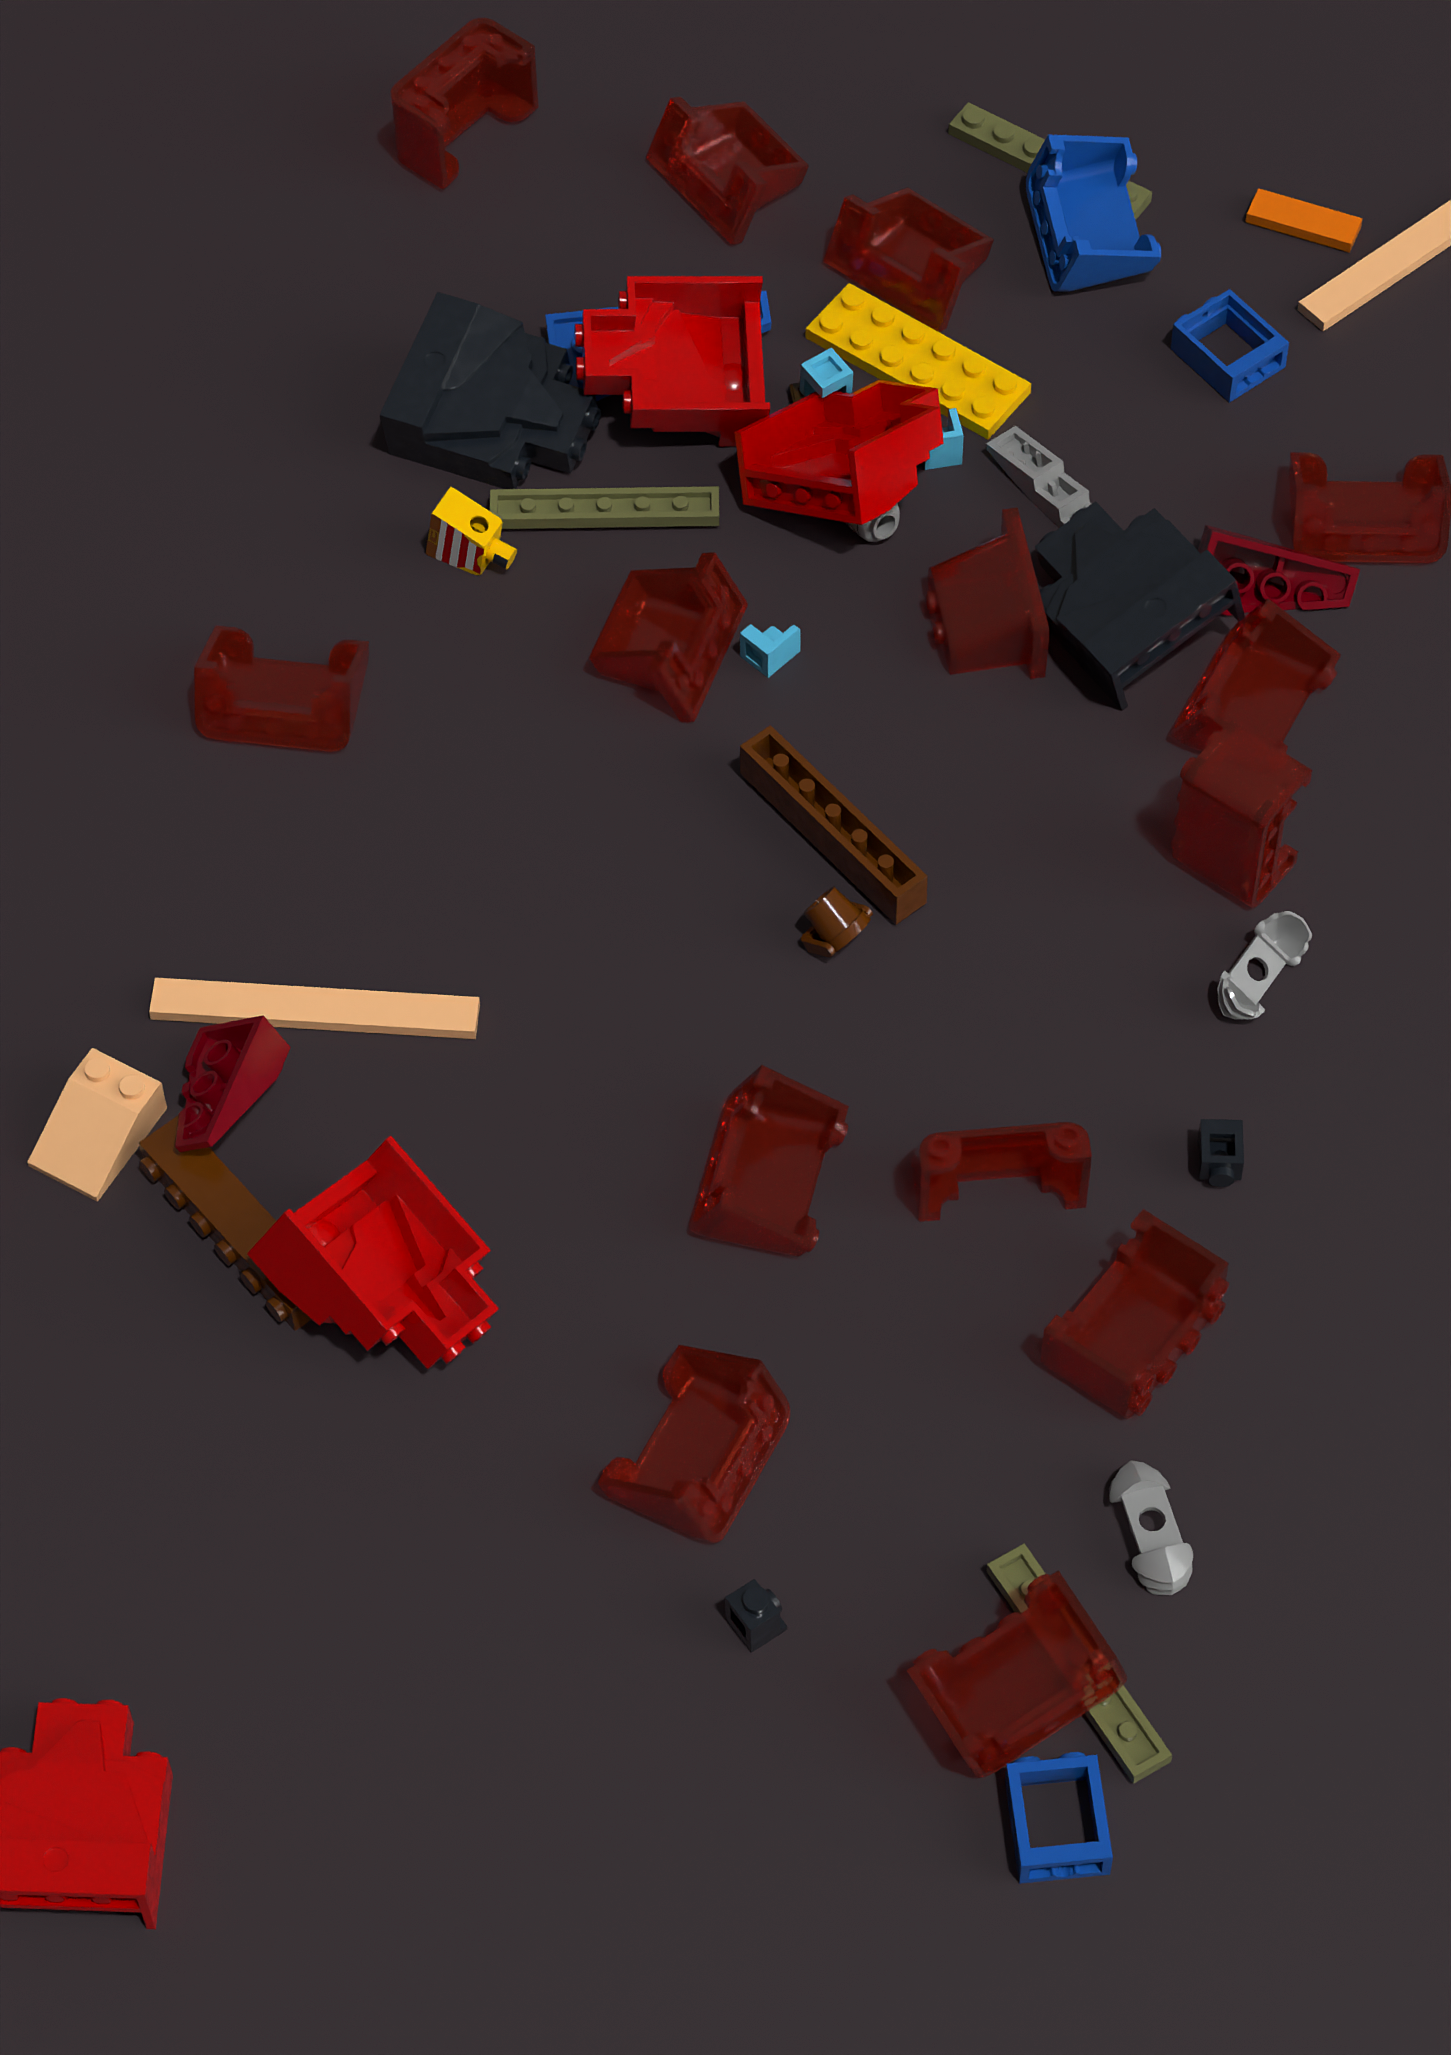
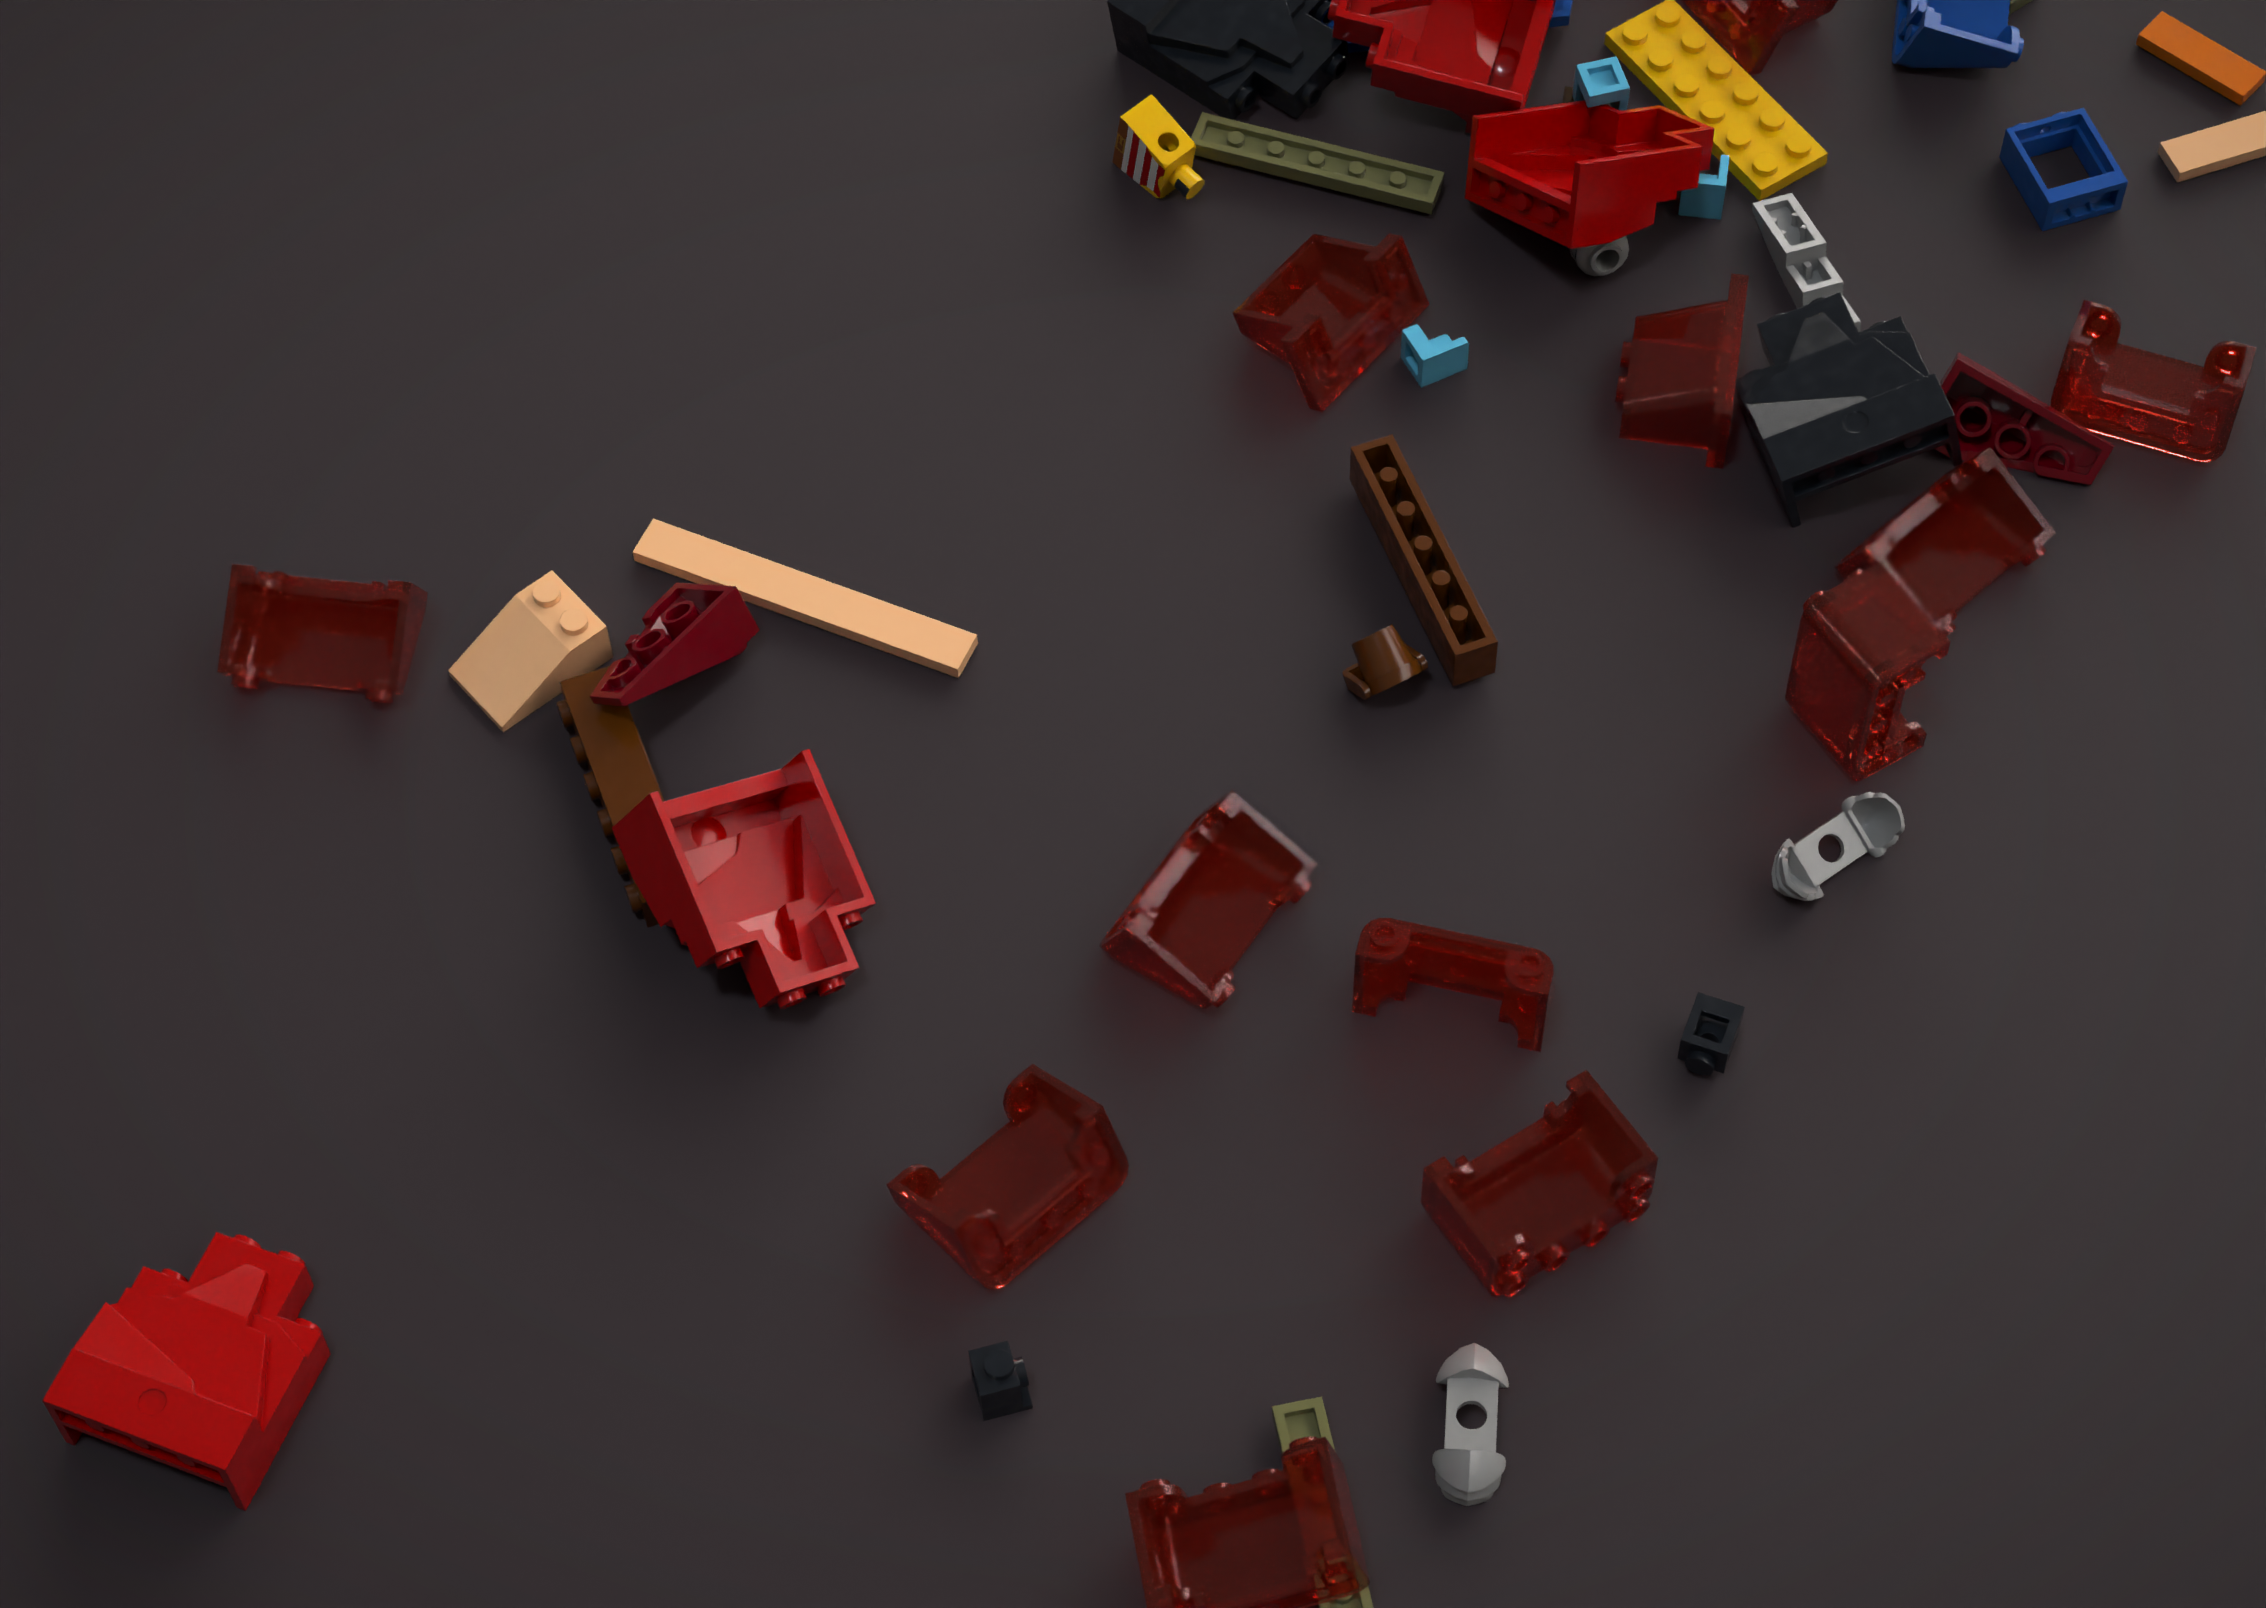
camera: 20 degrees right, 0 degrees up
(277, 699) = (893, 269): clear red windscreen -> none

